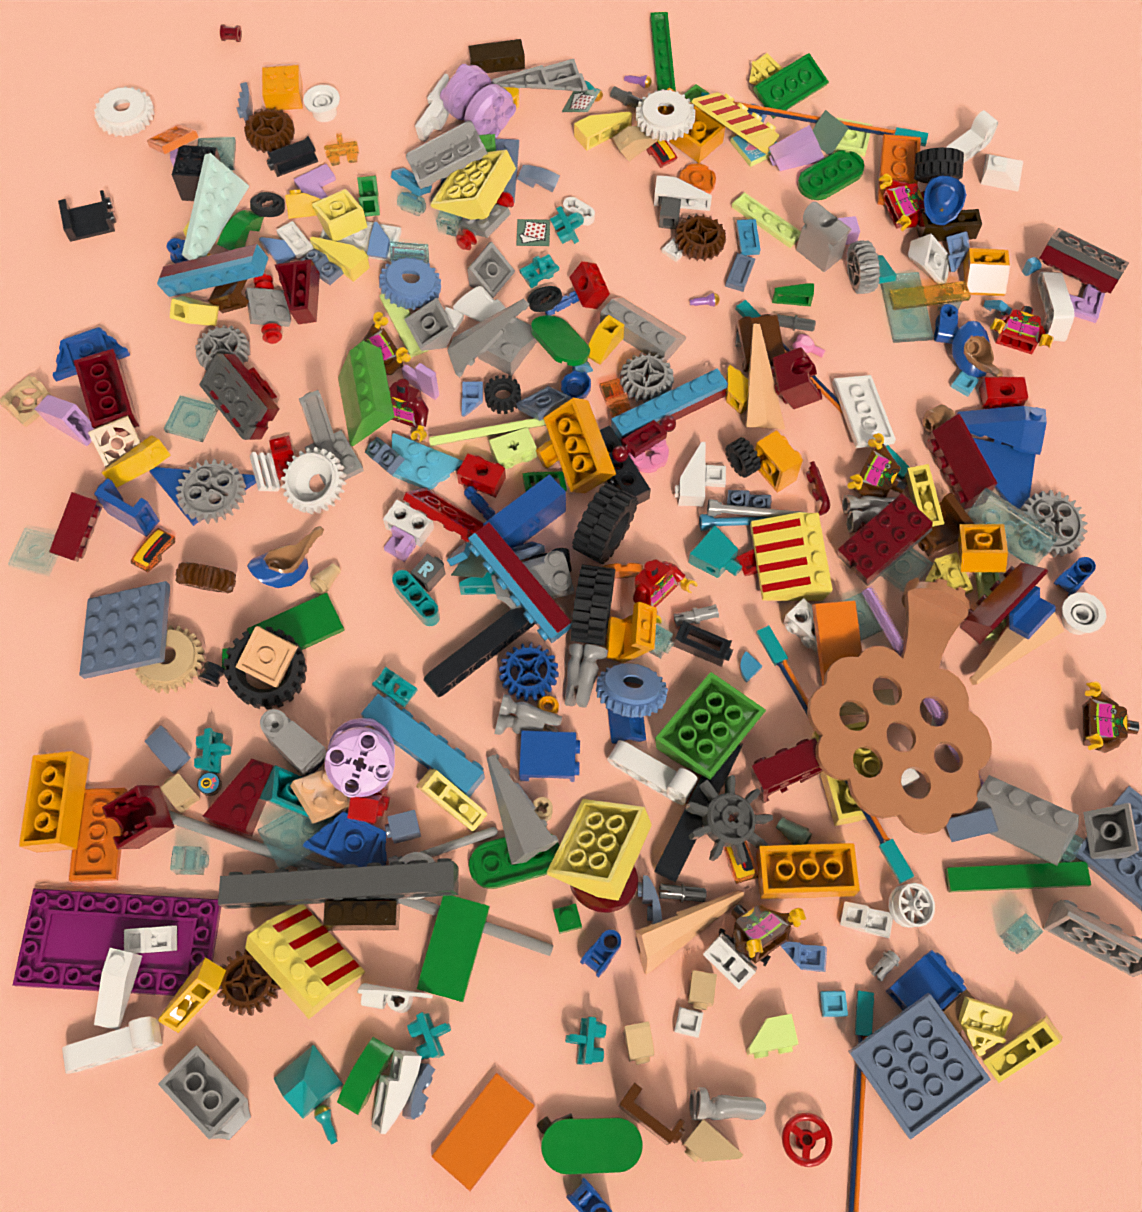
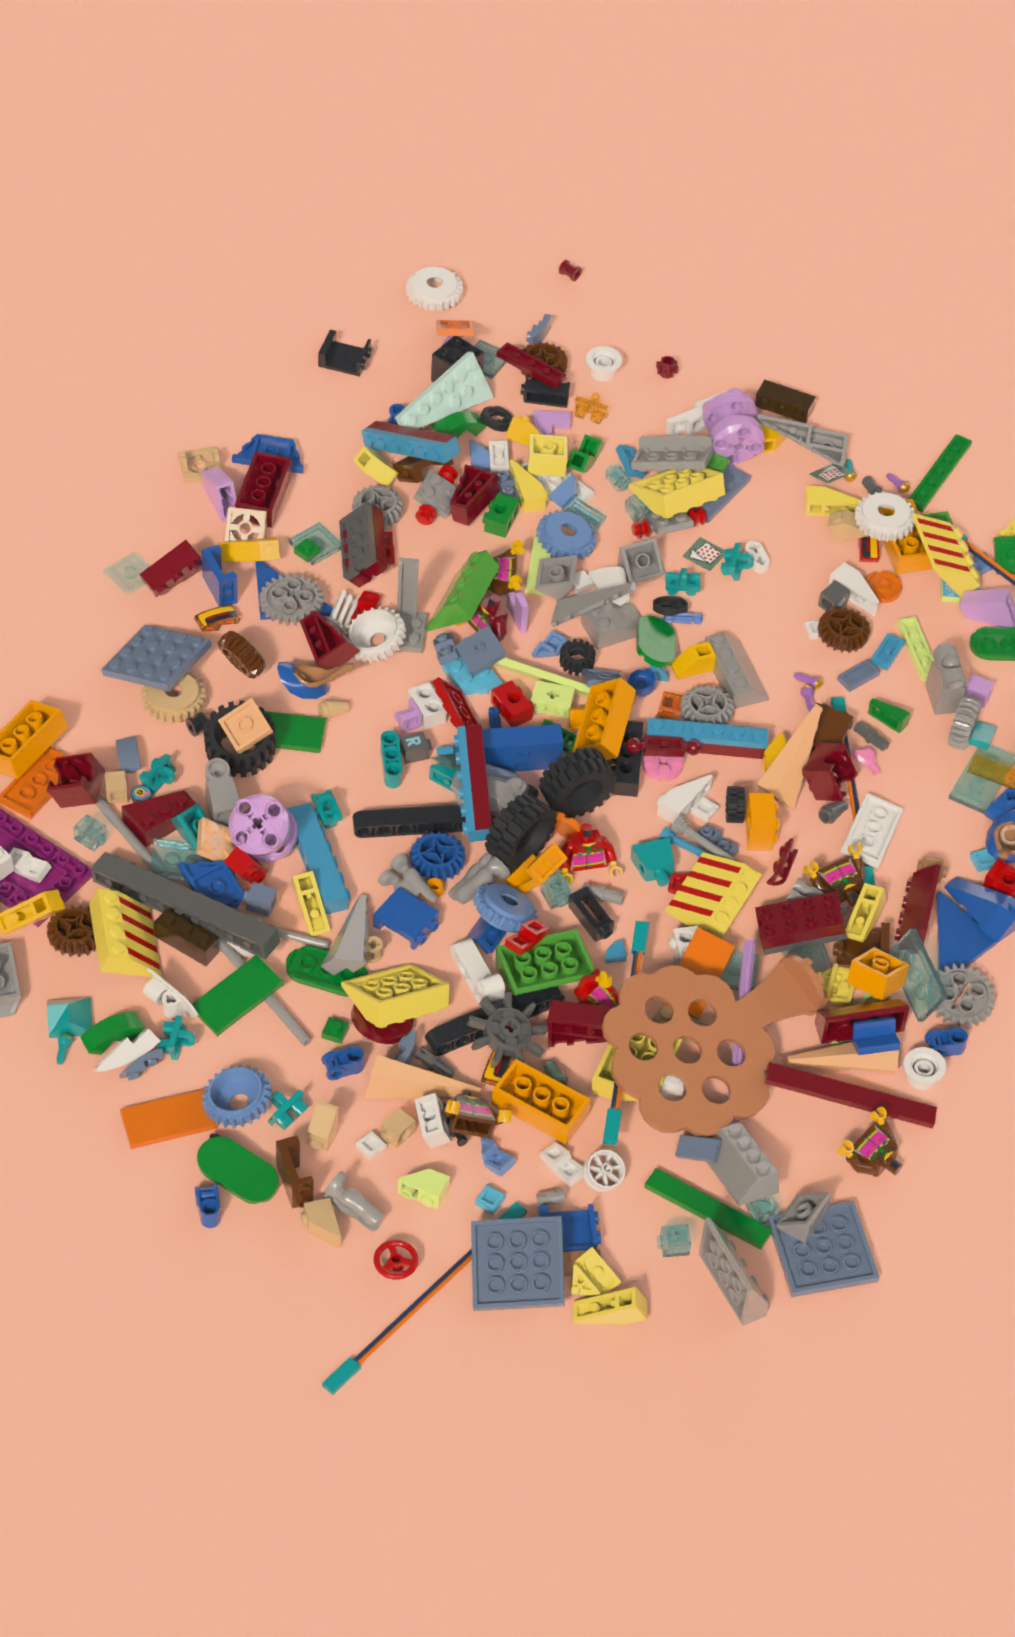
camera: 30 degrees right, 15 degrees down
(189, 430) = (307, 550): none -> green plate
(264, 138) = (531, 365): none -> dark red tile
(274, 514) = (326, 642): none -> dark red wedge
(282, 87) = (579, 334): light orange brick -> none
(338, 295) = (501, 515): none -> green brick
(377, 78) = (667, 367): none -> dark red gear
(420, 440) = (481, 650): none -> sand blue plate
(516, 1070) = (231, 1083): none -> medium blue gear
(534, 175) = (745, 513): sand blue slope -> none
(589, 285) = (715, 614): red brick -> none
(677, 711) = (528, 936): none -> red slope
(713, 313) = (807, 693): none -> medium lavender piece
(776, 728) = (596, 990): none -> torso
(819, 414) = (831, 812): none -> dark grey cone
(1047, 682) = (850, 1095): none -> dark red tile

